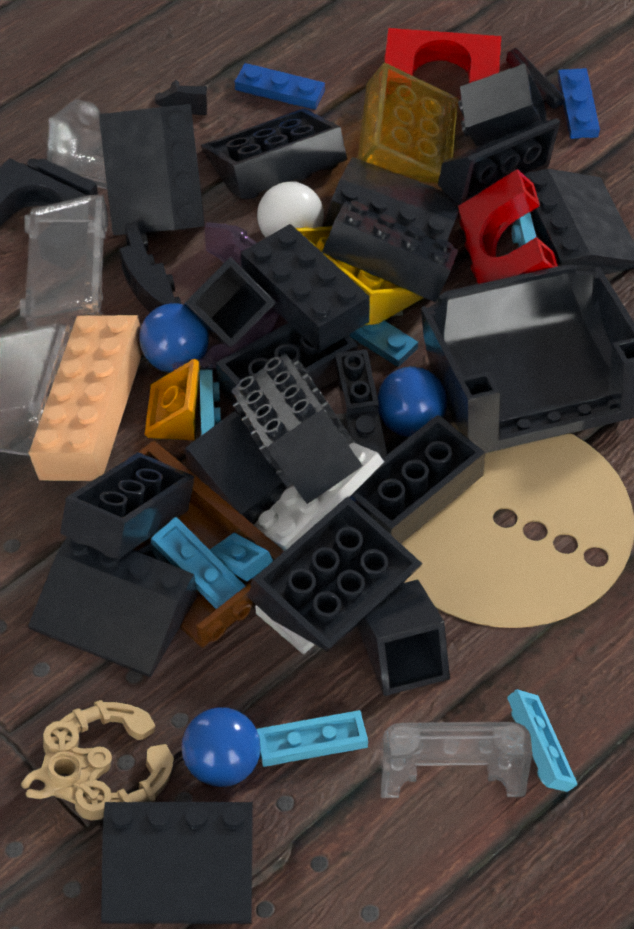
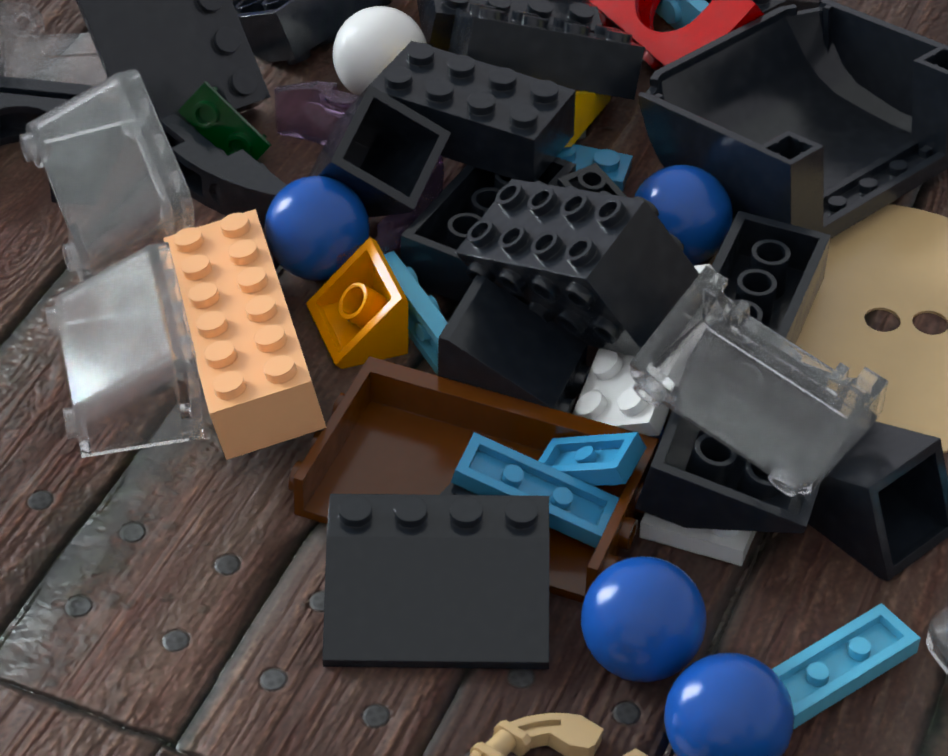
camera: 25 degrees left, 10 degrees down
(126, 505) = (397, 438): black brick -> none
(157, 230) = (222, 123): none -> dark green hinge
(206, 670) = (643, 619): none -> blue piece
(339, 550) = (755, 388): none -> clear windscreen

